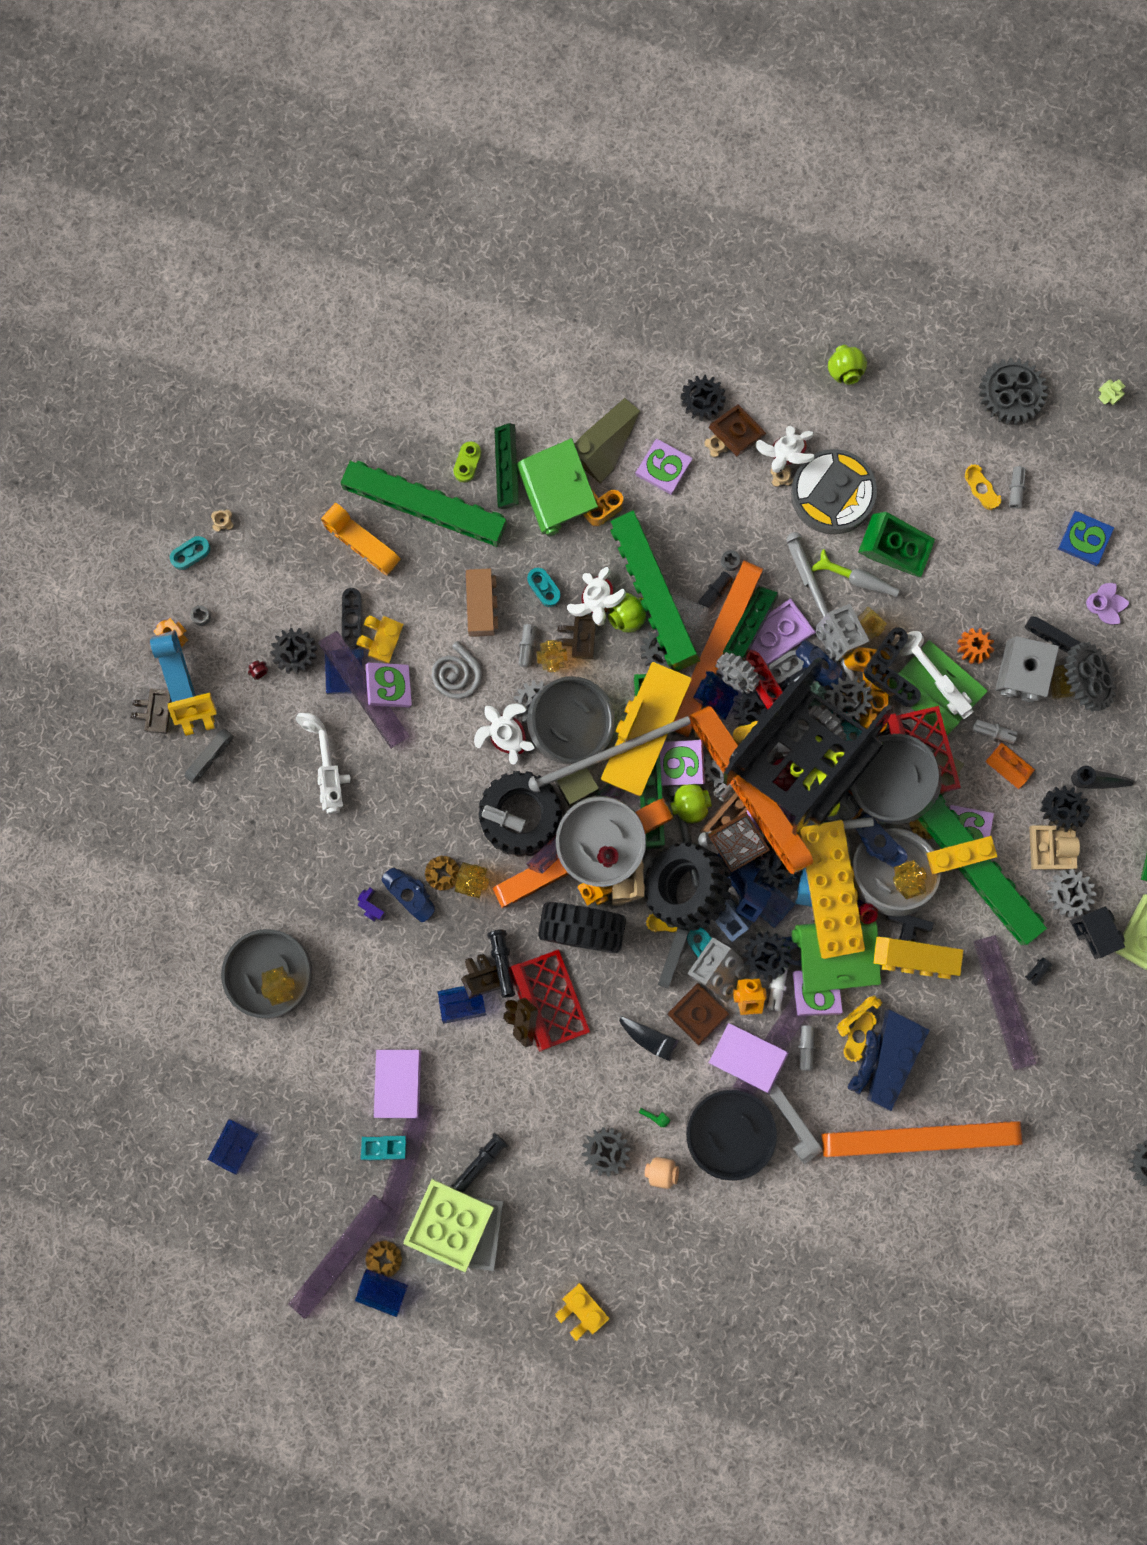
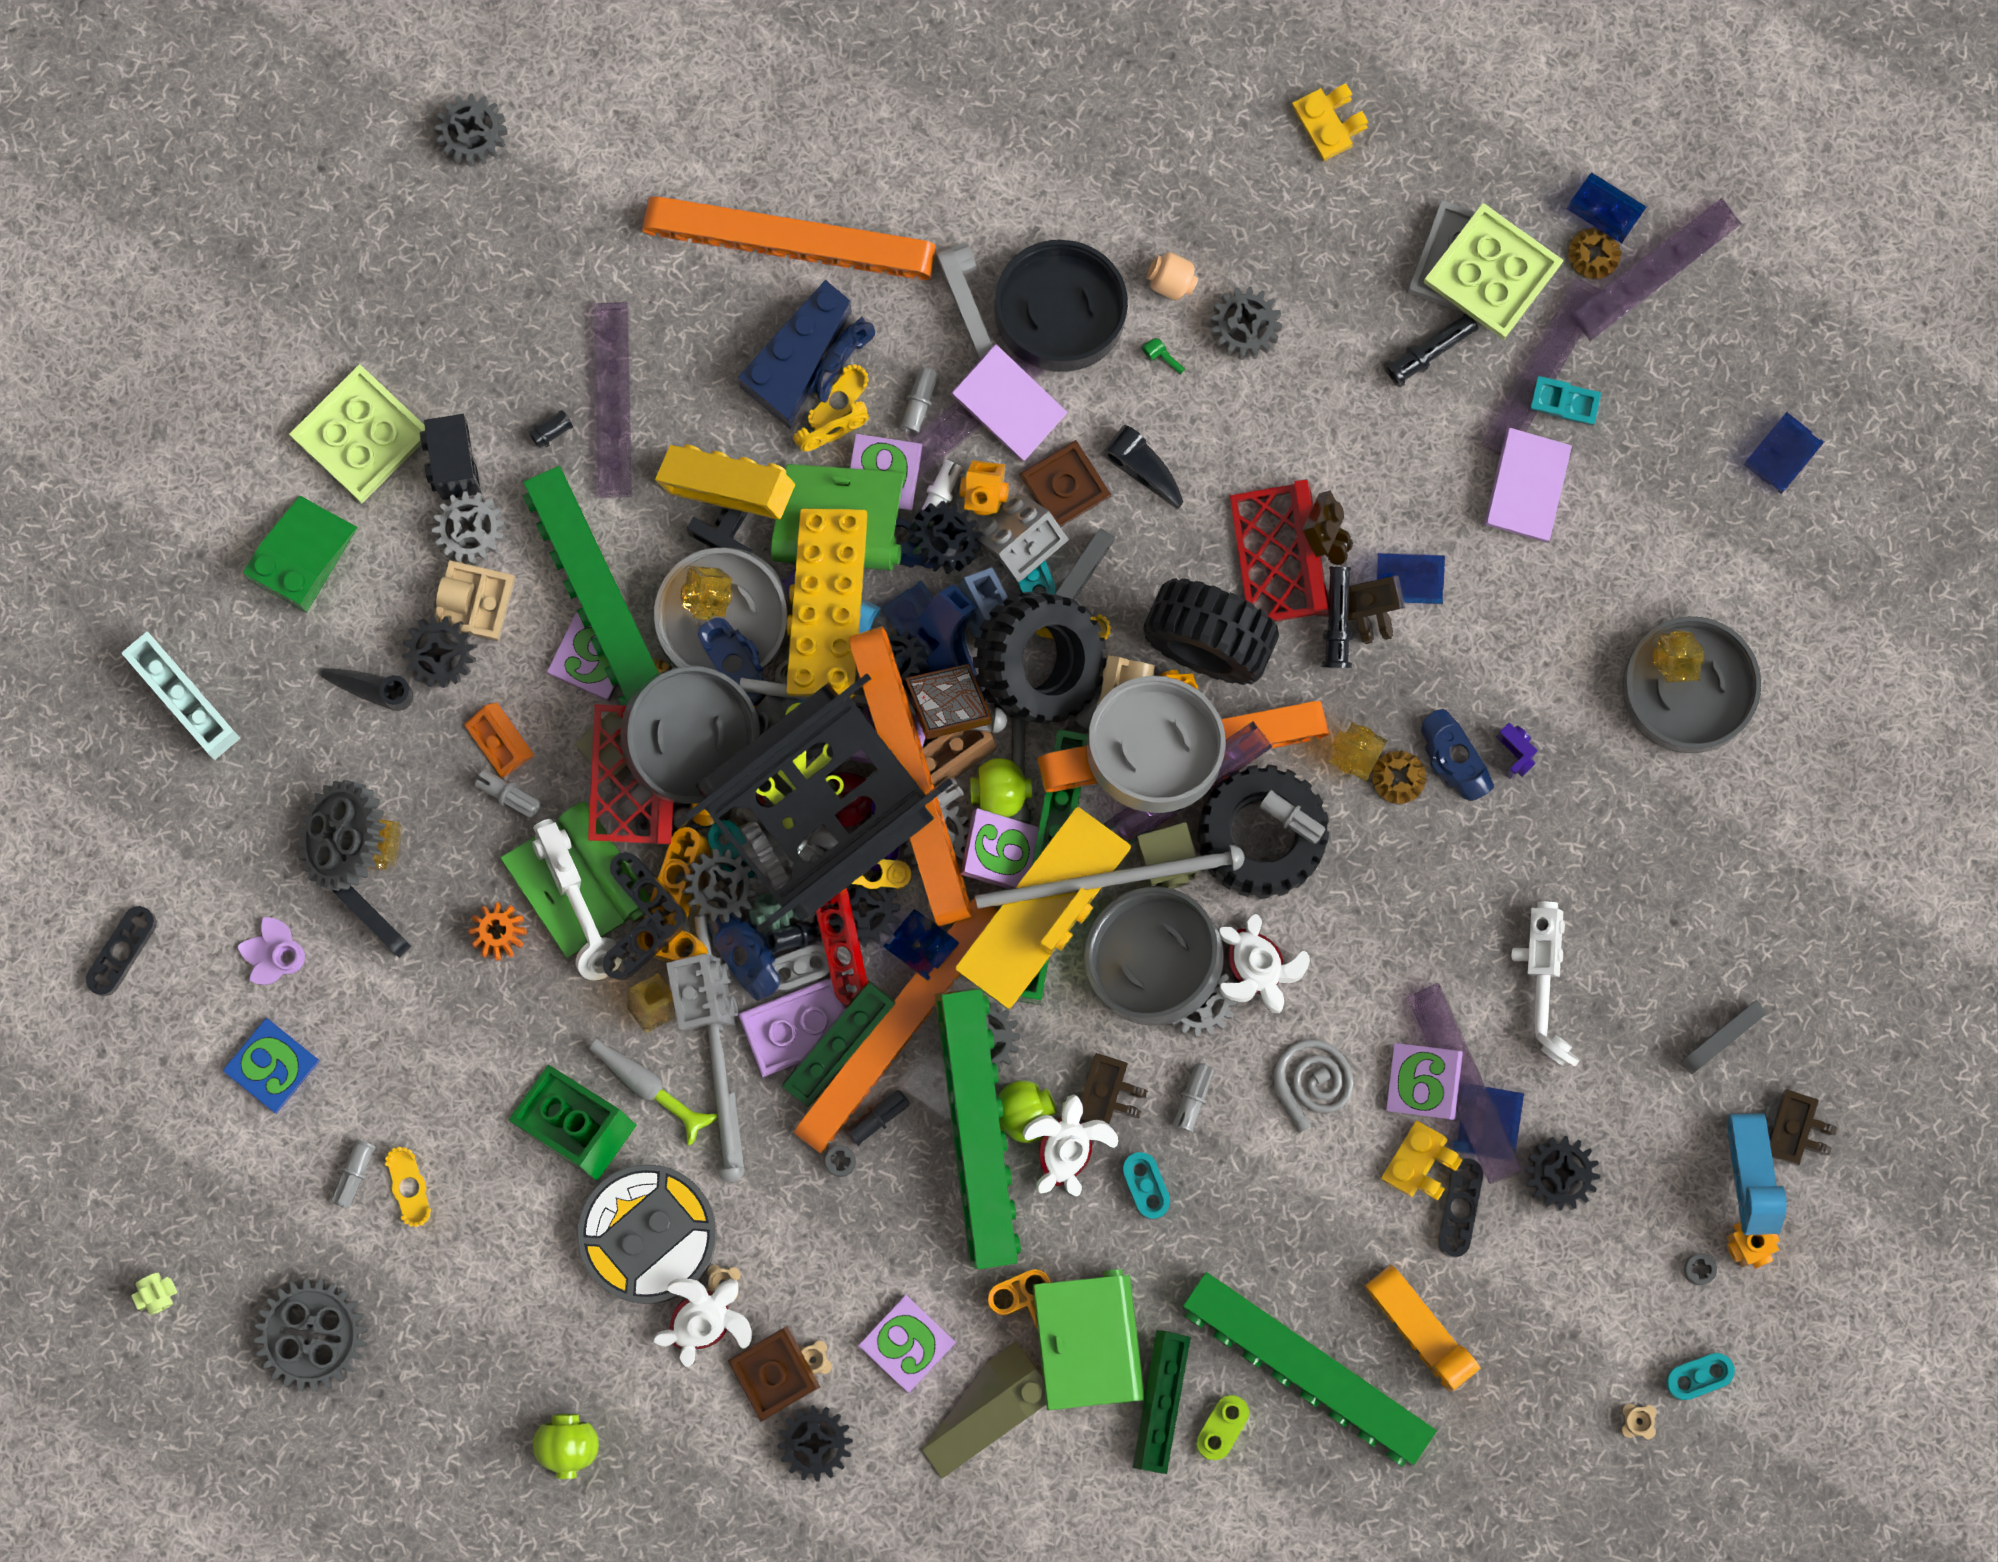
camera: 170 degrees left, 0 degrees up
(191, 709) = (1738, 1108): yellow plate -> none
(257, 669) = (1624, 1158): dark red plate -> none
(481, 602) = (1251, 1182): medium nougat brick -> none
(548, 649) = (1162, 1054): clear yellow brick -> none
(613, 856) = (1142, 715): dark red plate -> none
(737, 672) = (881, 963): light grey gear -> none
(870, 916) = (782, 560): dark red plate -> none
(961, 855) = (619, 610): yellow plate -> none
(1016, 679) = (437, 849): light grey brick -> none

